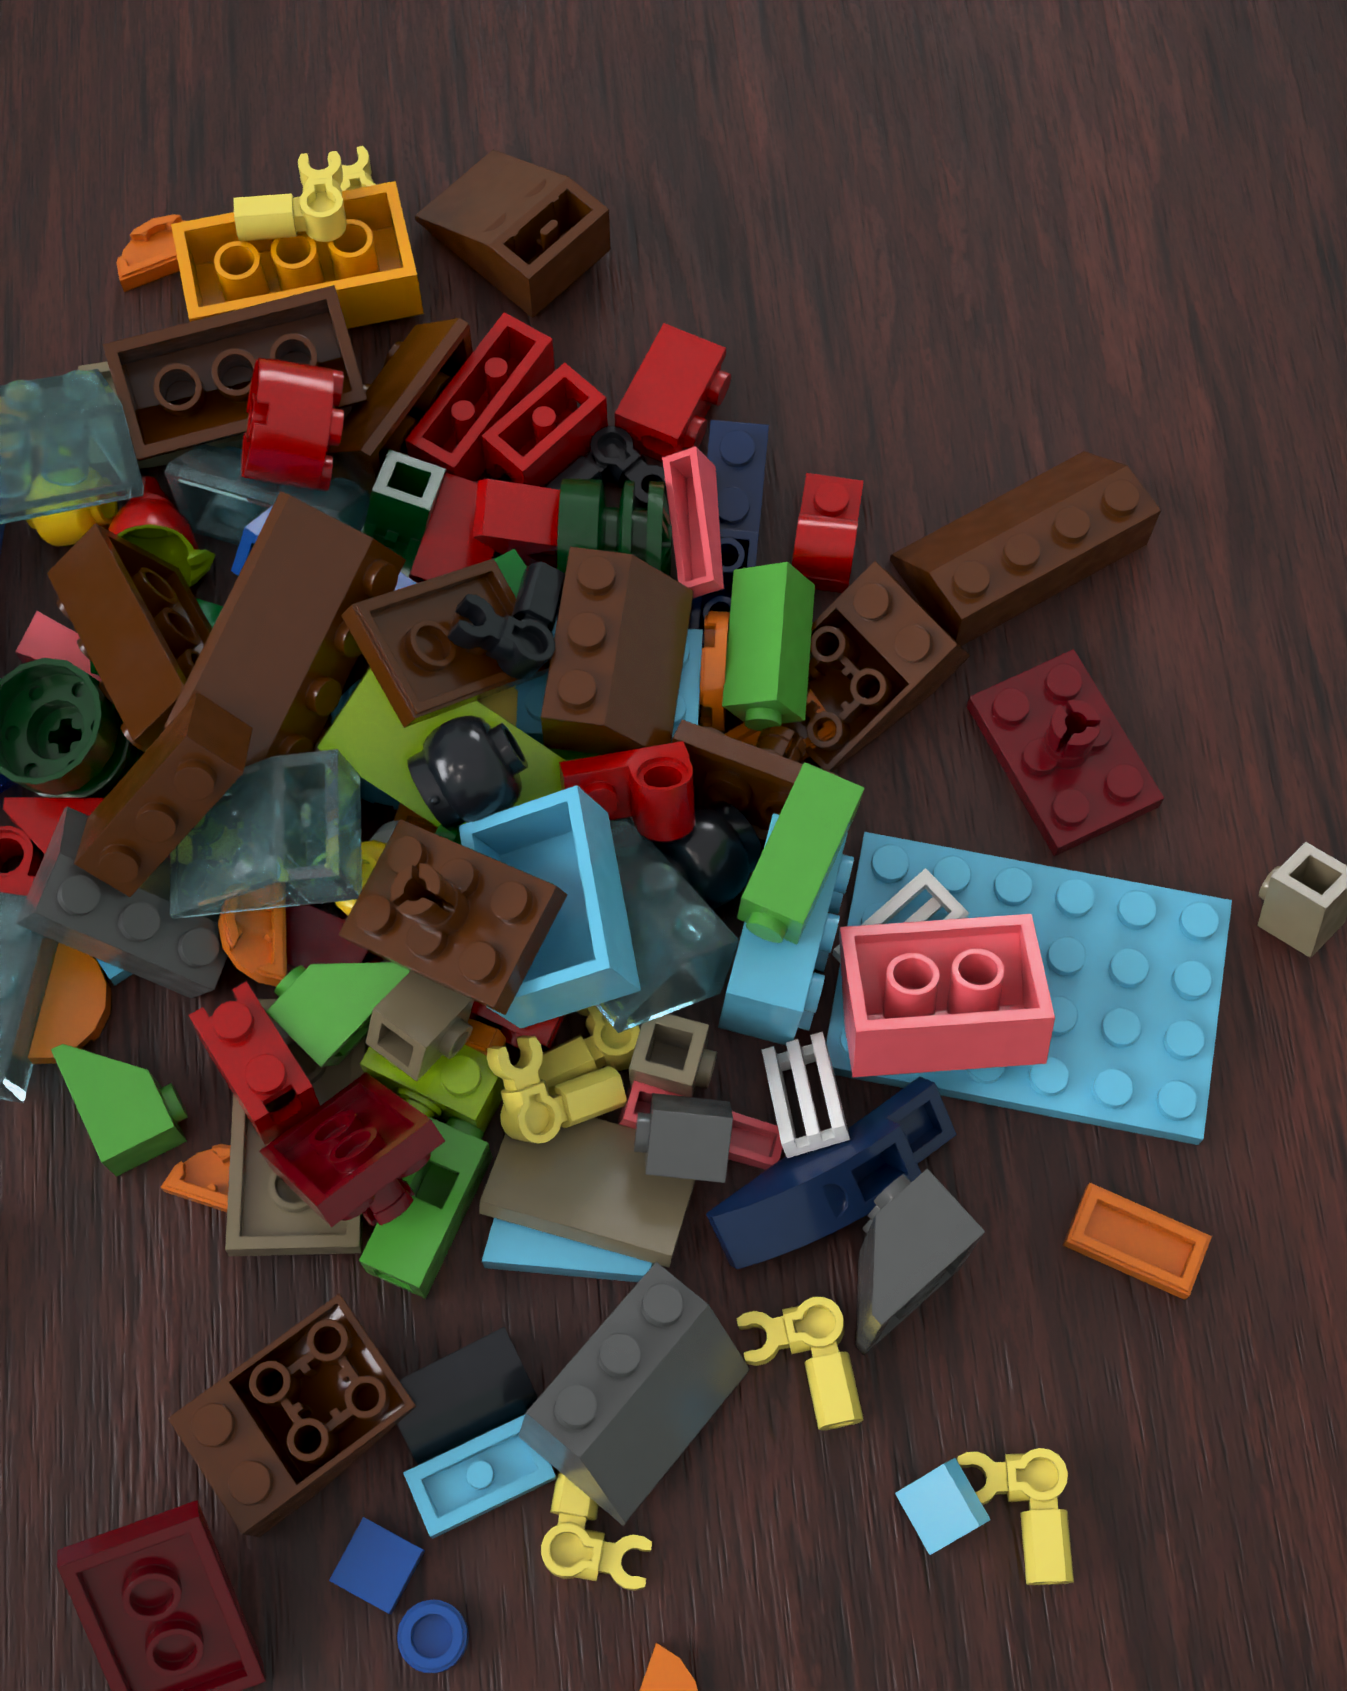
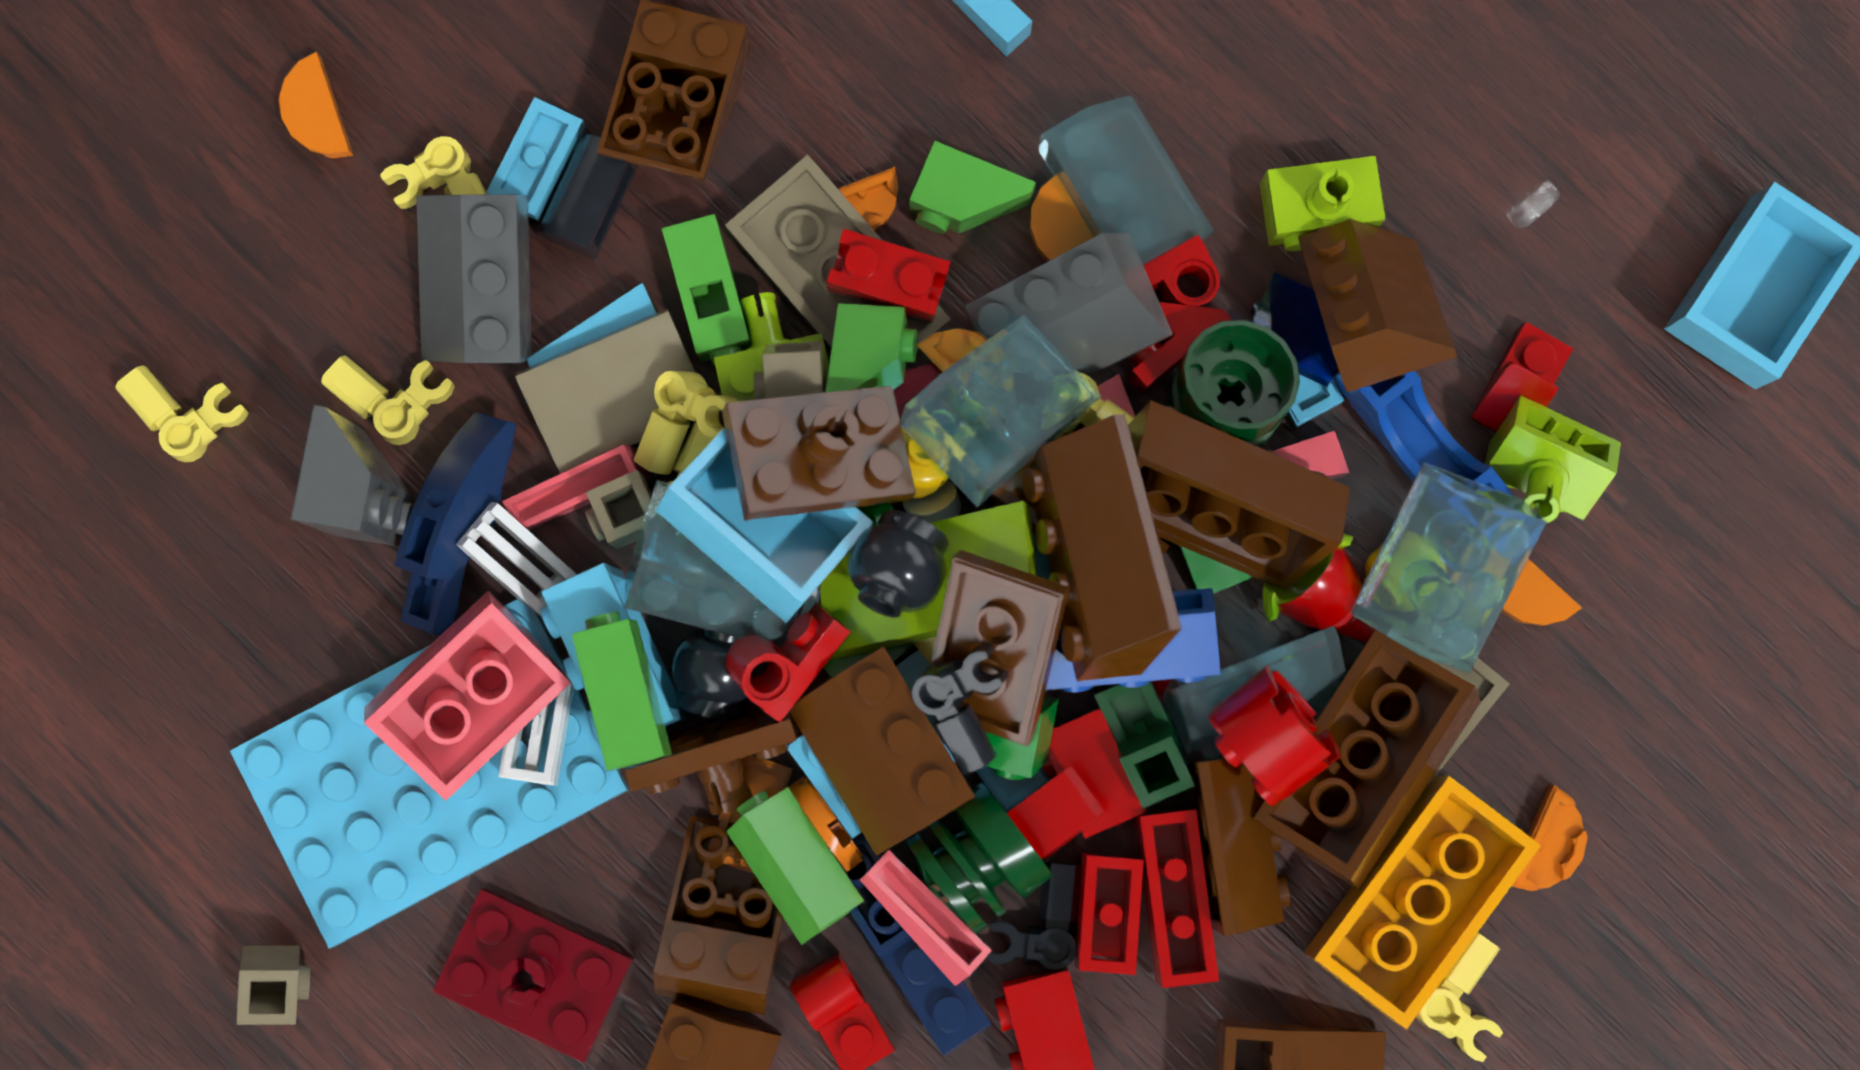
camera: 140 degrees right, 15 degrees up
(164, 795) = (1082, 371): reddish brown brick -> none
(316, 212) = (1432, 943): light yellow bar -> none
(354, 1153) = (763, 259): dark red plate -> none
(377, 1566) = (558, 61): blue tile -> none
(432, 1636) = (490, 50): blue tile -> none
(685, 1137) = (566, 458): dark grey brick -> none
(942, 1506) = (230, 369): medium azure tile -> none
(1137, 1241) = (229, 646): orange tile -> none

